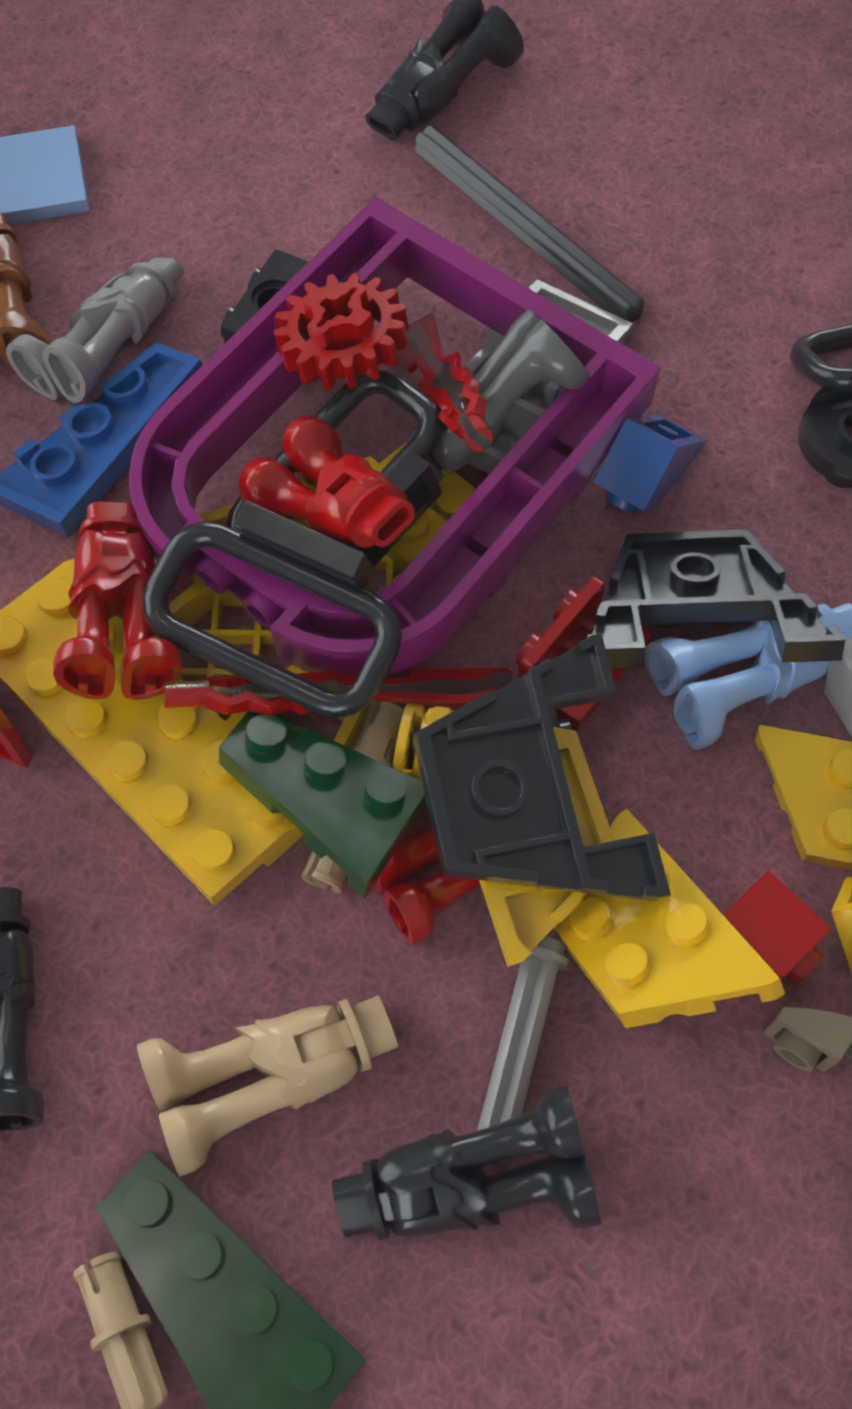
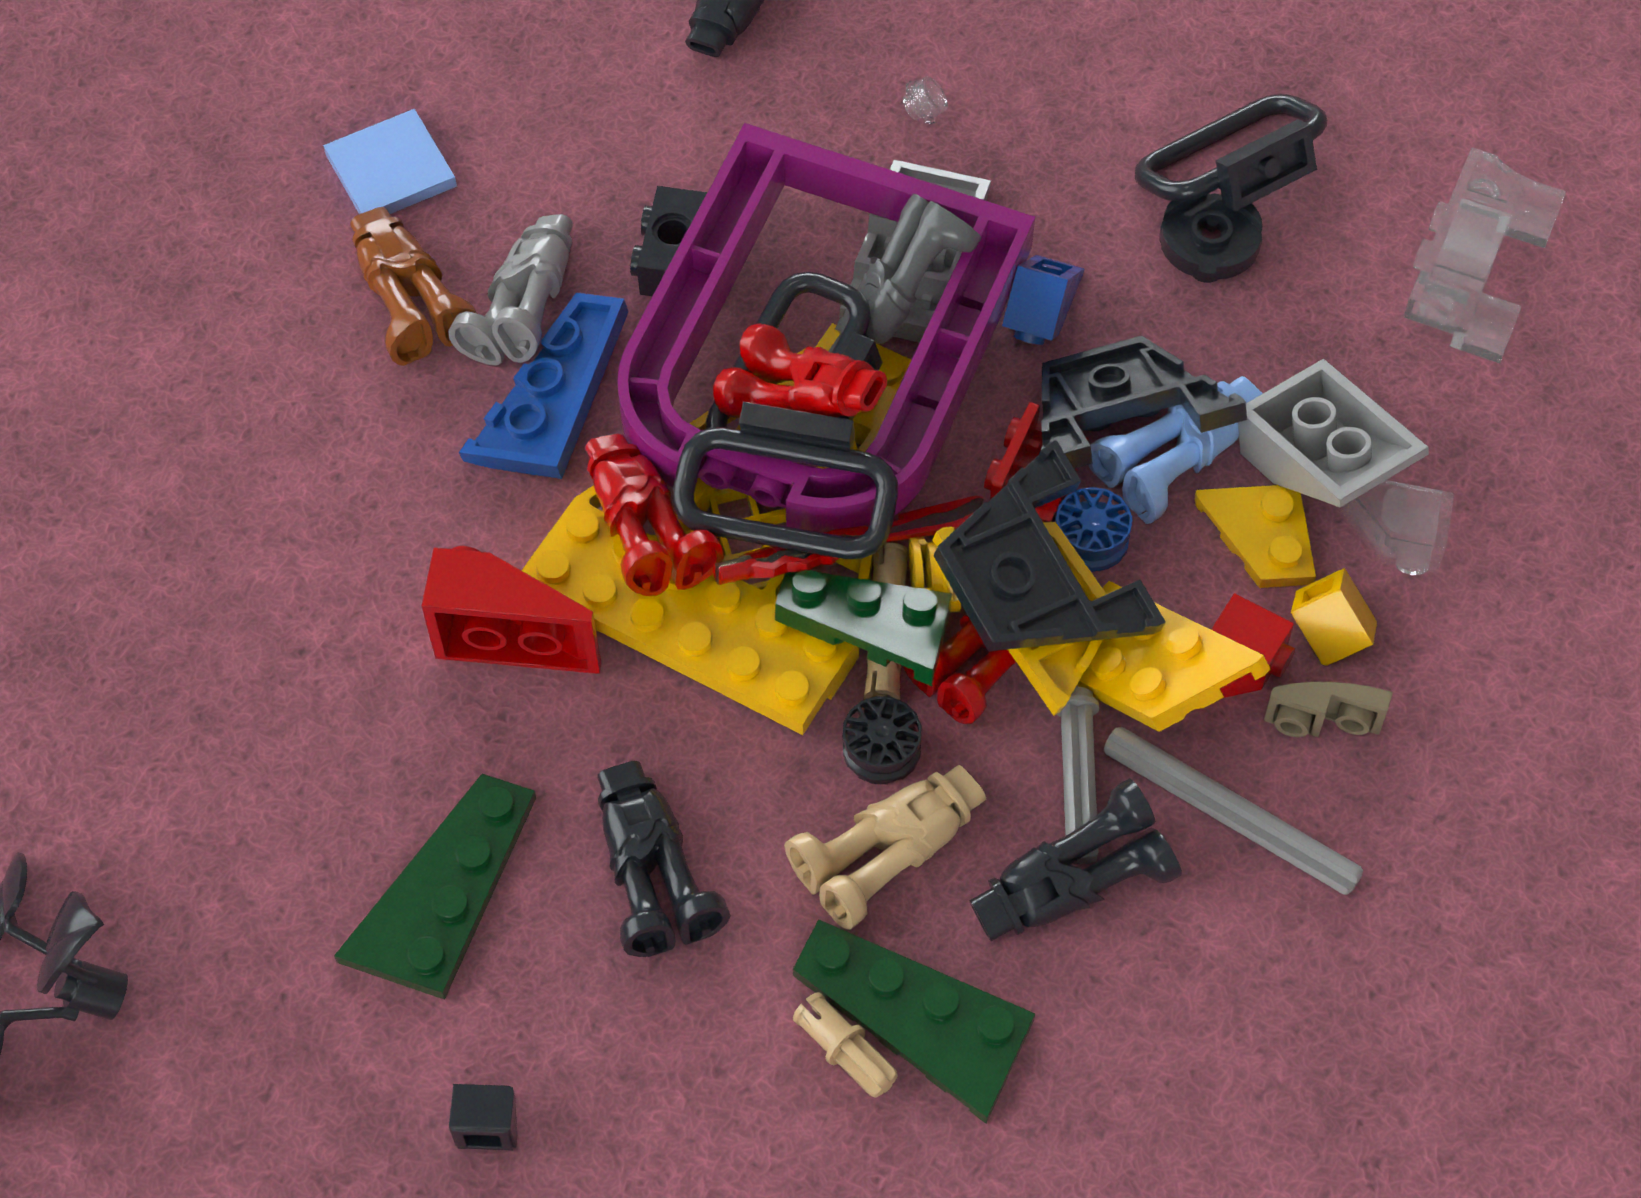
camera: 15 degrees left, 5 degrees down
(301, 939) = (882, 741): none -> black wheel
(341, 331) = (762, 247): red gear -> none
(447, 384) = (886, 289): red sword -> none
(529, 225) = (866, 110): black axle -> none
(589, 224) = (925, 100): none -> clear plate
(625, 743) = (1106, 527): none -> blue wheel
(698, 1152) = (1233, 810): none -> light grey axle

